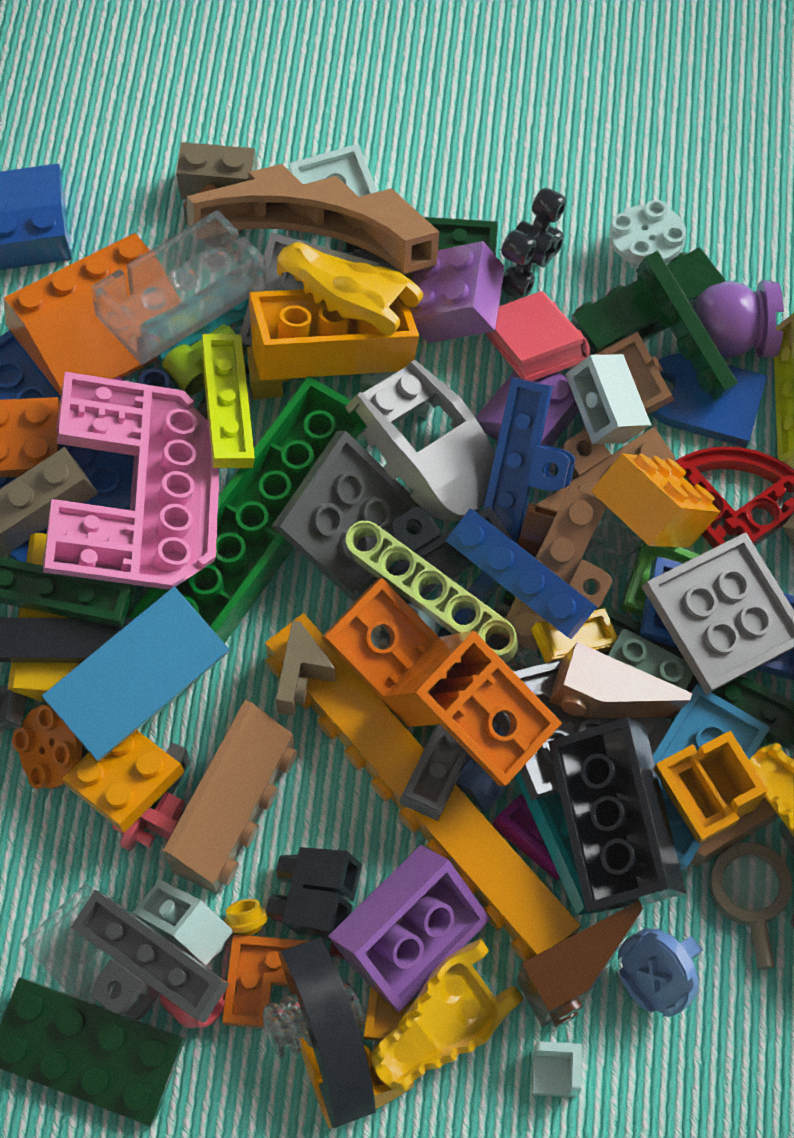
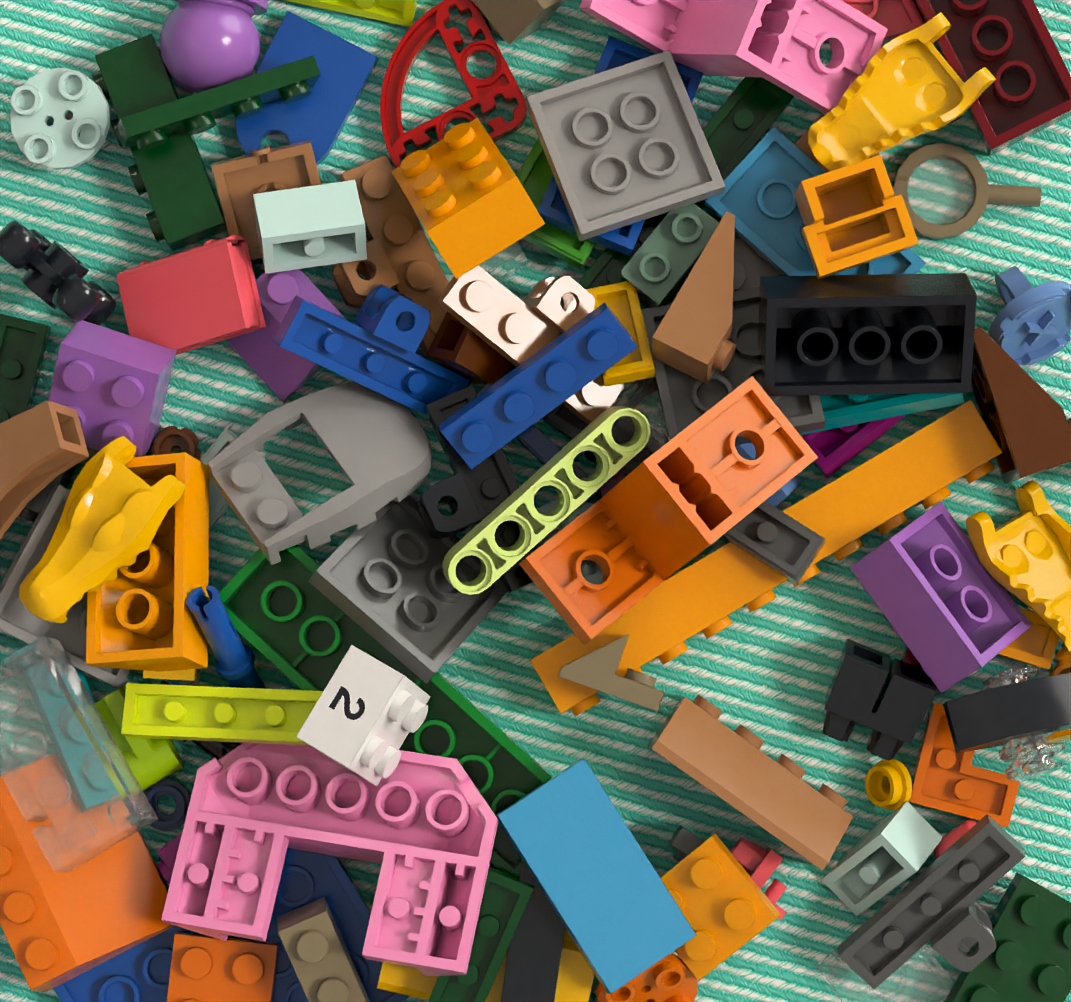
camera: 80 degrees left, 20 degrees up
(237, 475) = (365, 716): none -> white brick
(272, 402) = (232, 658): none -> blue pin
(430, 349) = (171, 437): none -> reddish brown plate

